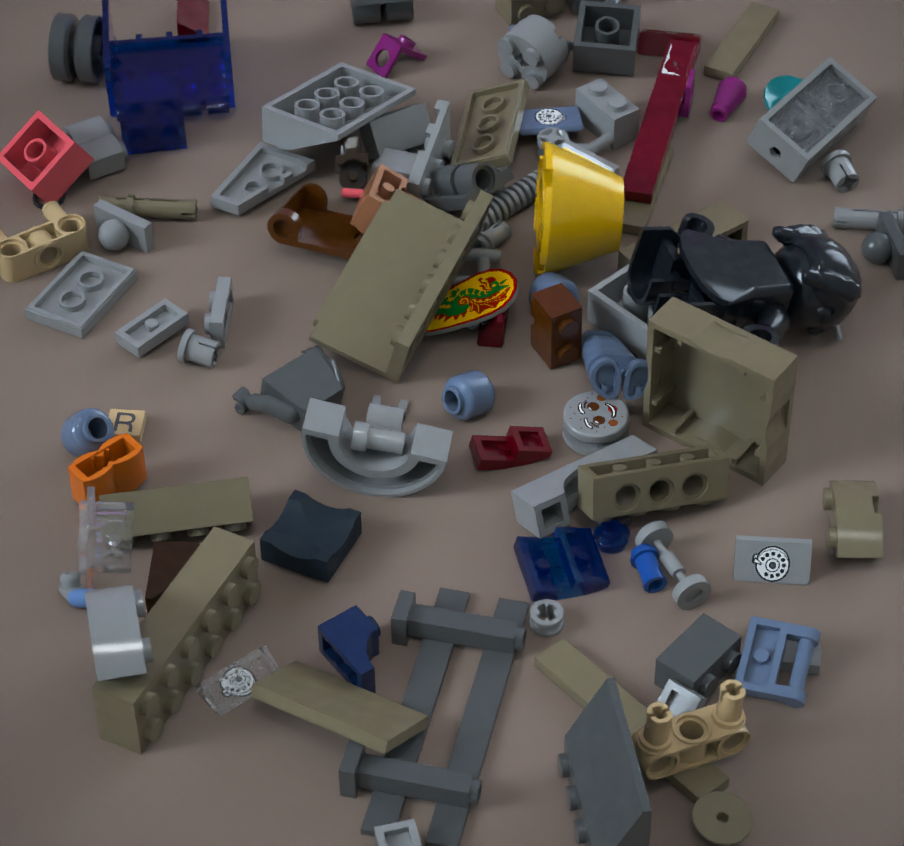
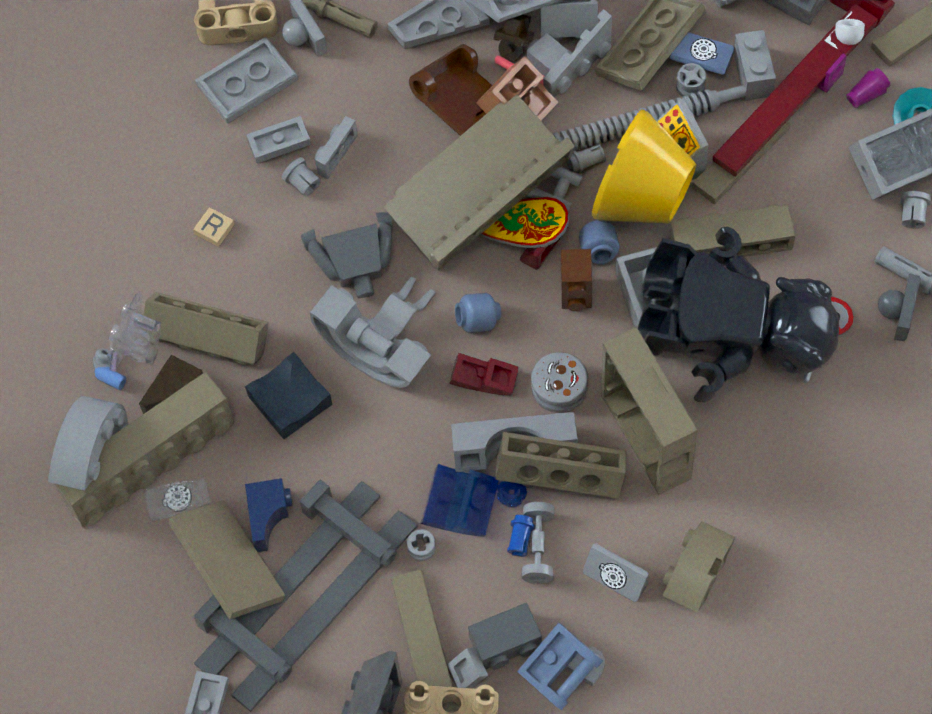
camera: 30 degrees right, 20 degrees up
(86, 431) = (173, 235): sand blue head -> none
(112, 469) = (173, 272): orange brick -> none
(463, 182) = (591, 100): dark grey plate -> none
(612, 365) = (598, 324): sand blue piece -> none
(681, 58) = (849, 31): none -> white piece

